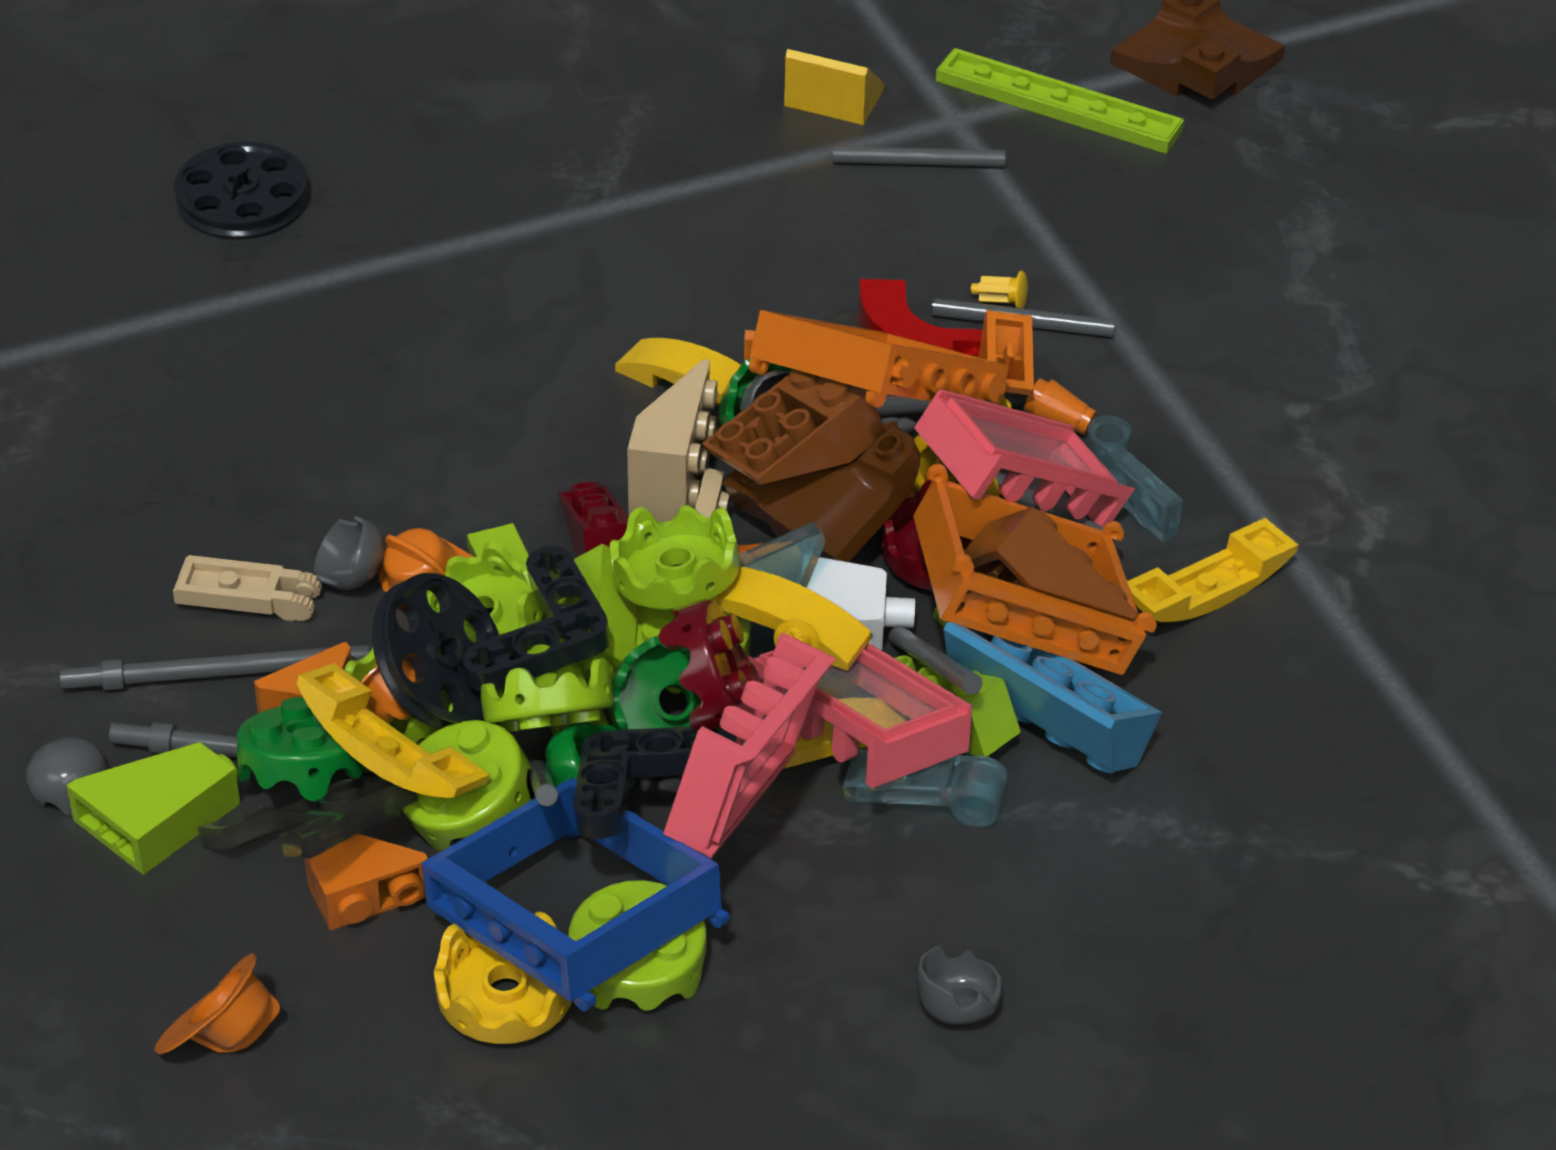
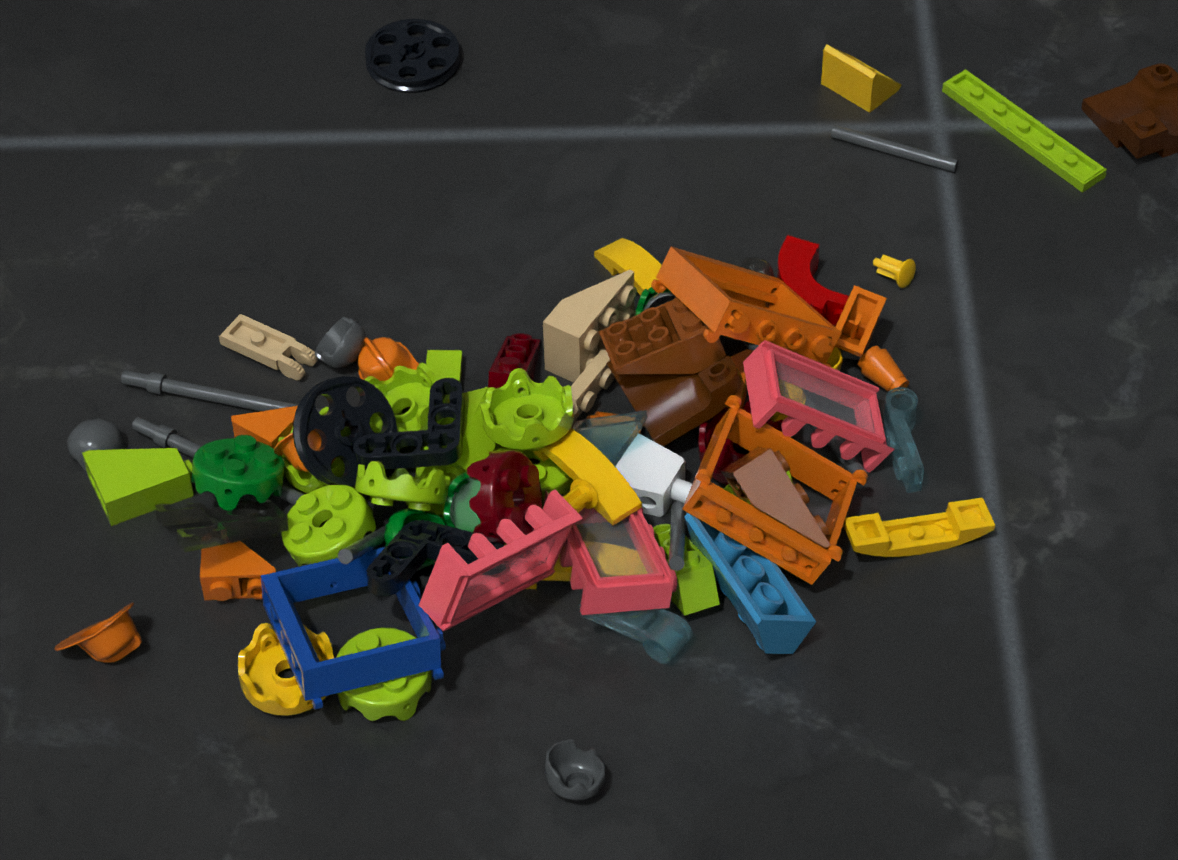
camera: 25 degrees right, 5 degrees up
(341, 708) = (275, 486): yellow slope -> none
(1040, 319) = (900, 294): dark grey bar -> none

